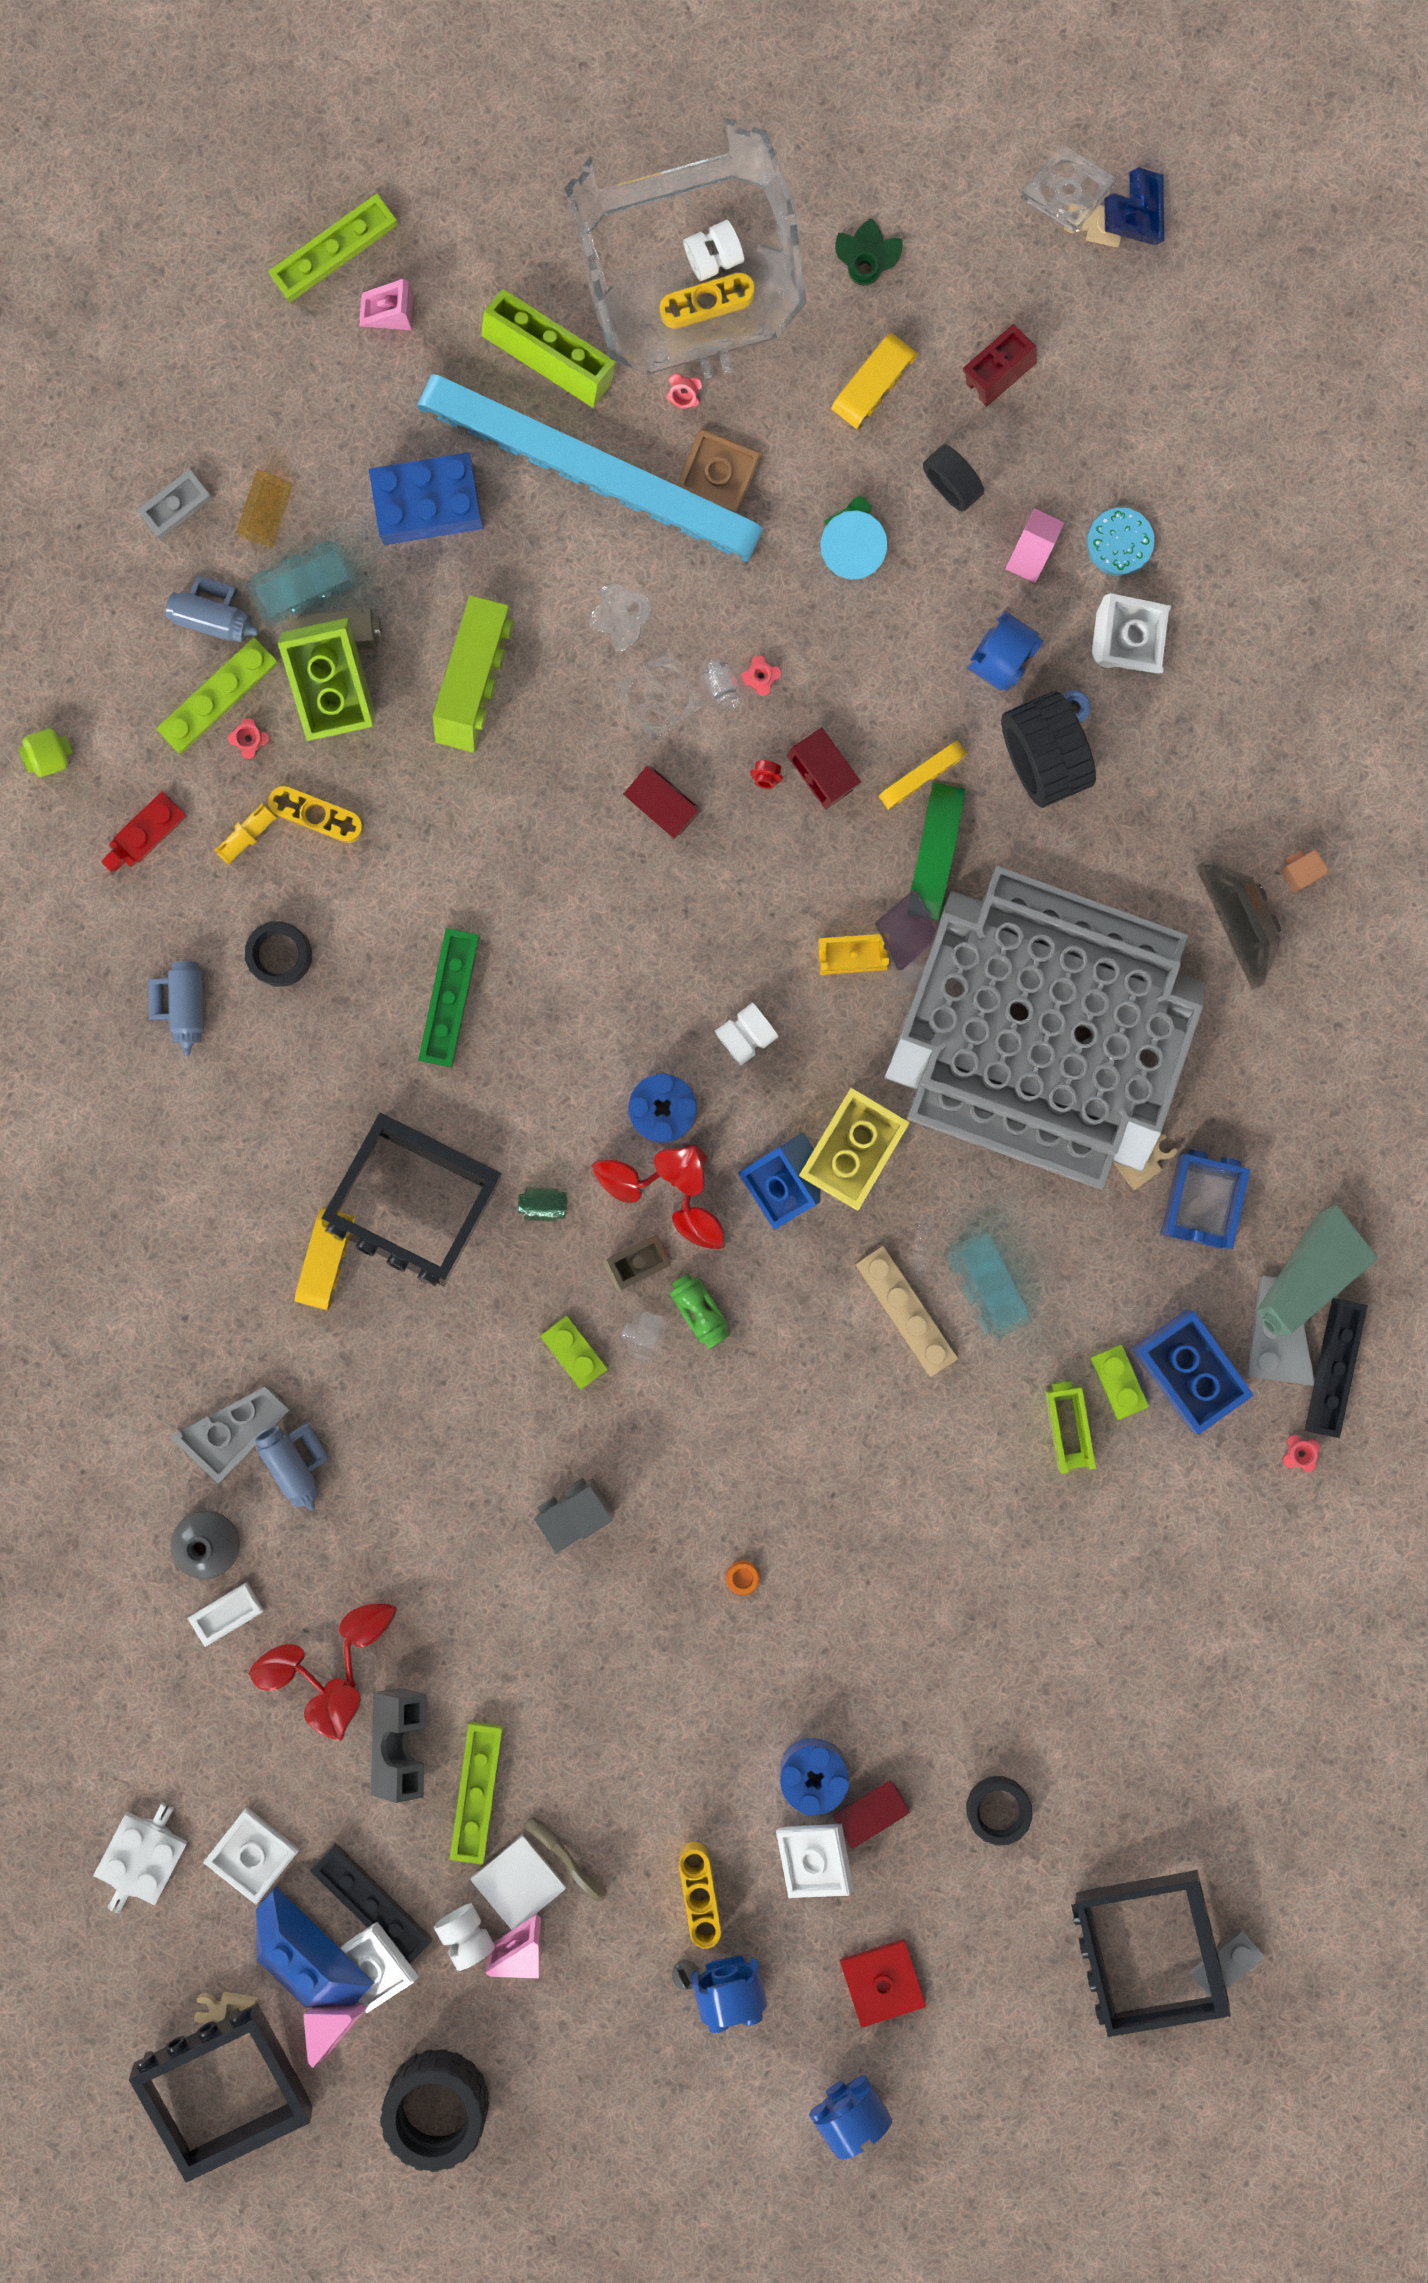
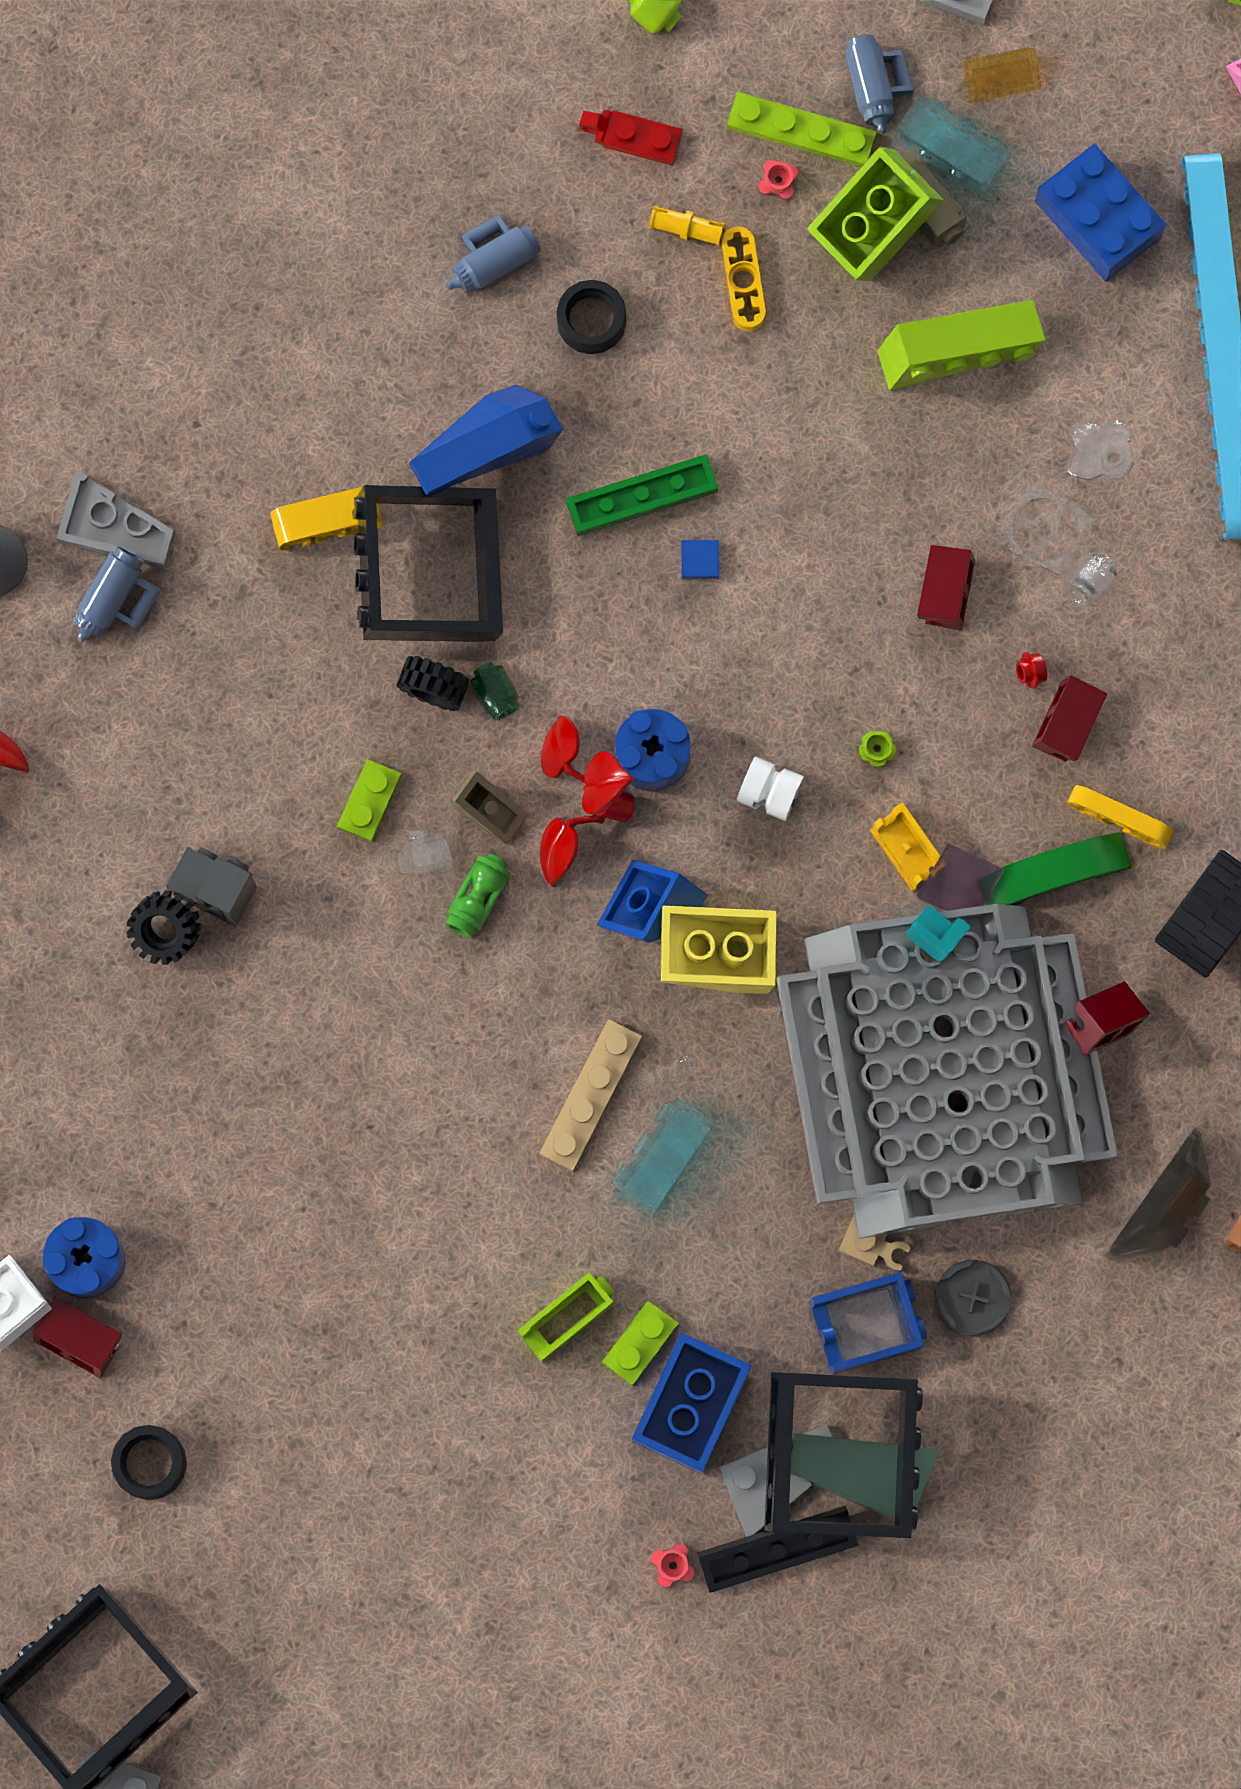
camera: 65 degrees right, 10 degrees down
(332, 1092) = (488, 437): none -> blue wedge
(511, 1251) = (433, 683): none -> black tyre
(527, 981) = (700, 559): none -> blue tile
(593, 1586) = (177, 913): none -> black tyre
(742, 1577) = (240, 1083): orange tile -> none
(763, 923) = (881, 739): none -> lime plate
(770, 675) = (1130, 605): coral plate -> none
(946, 974) = (936, 933): none -> teal panel
(1078, 879) = (1107, 1017): none -> dark red hinge
(1228, 1108) = (973, 1298): none -> dark grey tile
(1276, 1328) = (780, 1453): none -> black window

